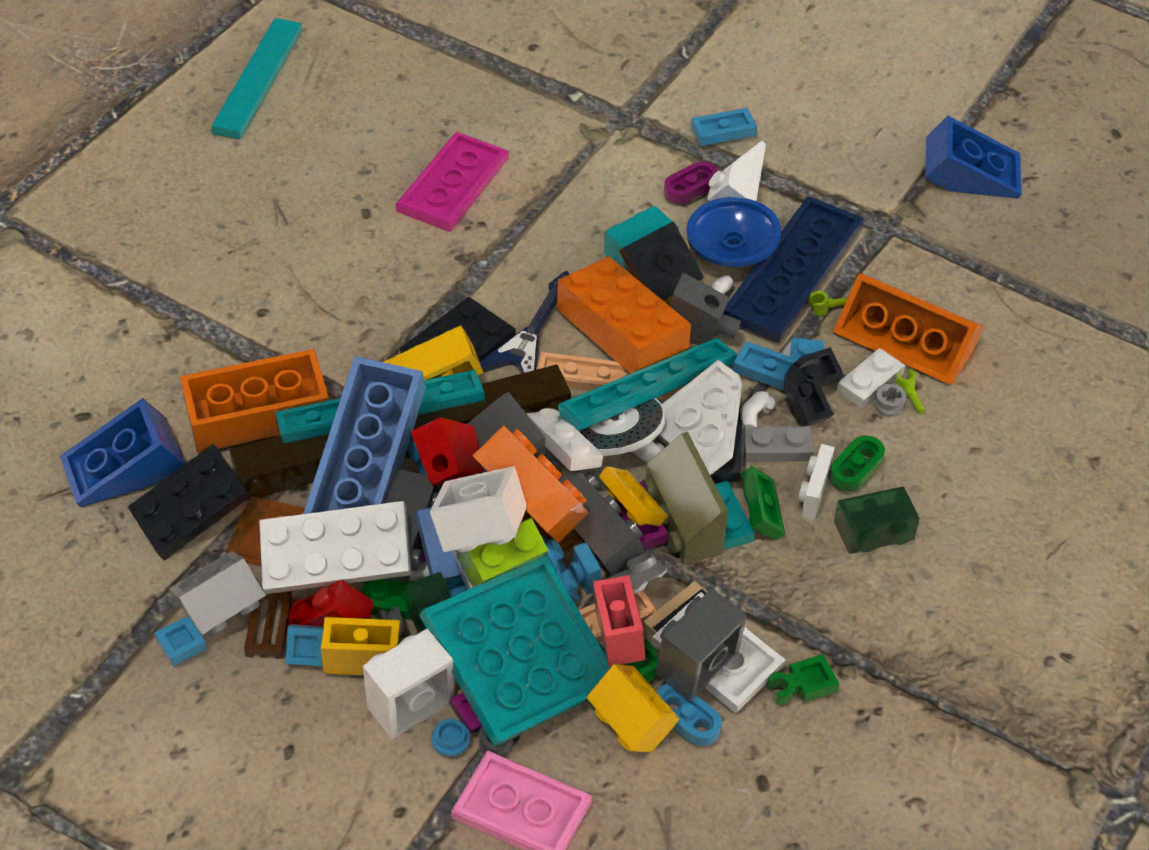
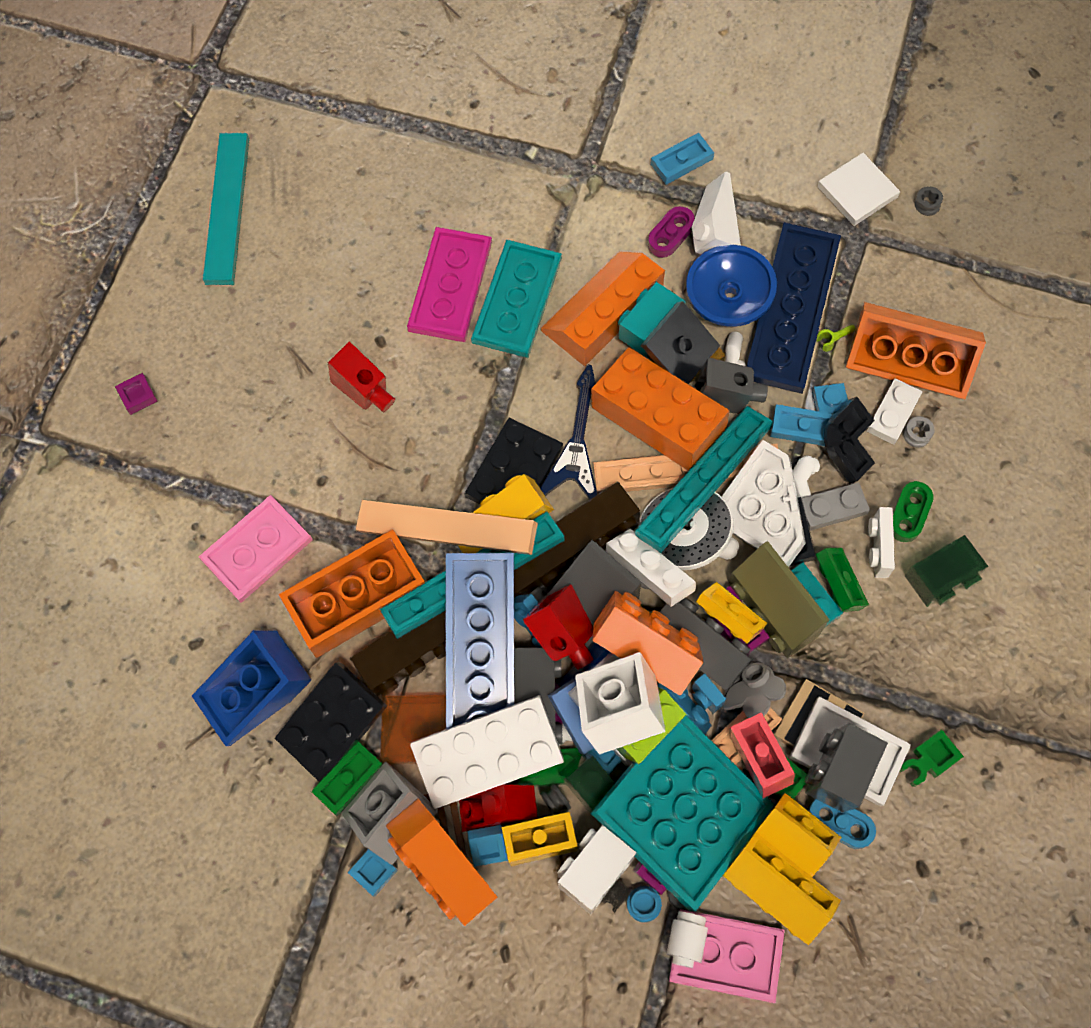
camera: 10 degrees left, 20 degrees up
(109, 200) = (136, 393): none -> magenta plate
(173, 350) = (255, 548): none -> bright pink tile
(185, 556) = (347, 778): none -> green plate
(249, 626) = (439, 863): none -> orange brick
(330, 228) = (359, 379): none -> red torso
(338, 355) = (448, 526): none -> light nougat tile
(424, 719) = (617, 894): none -> clear smoke bush
(482, 768) = (687, 939): none -> white brick
(515, 206) = (517, 298): none -> teal tile
(581, 237) = (594, 311): none -> orange slope
(599, 750) = (782, 889): none -> yellow brick
(897, 188) = (858, 189): none -> white tile
(909, 387) = (930, 414): lime hand -> none
(965, 219) = (923, 206): none -> dark grey bush
(971, 161) = (918, 143): blue slope -> none

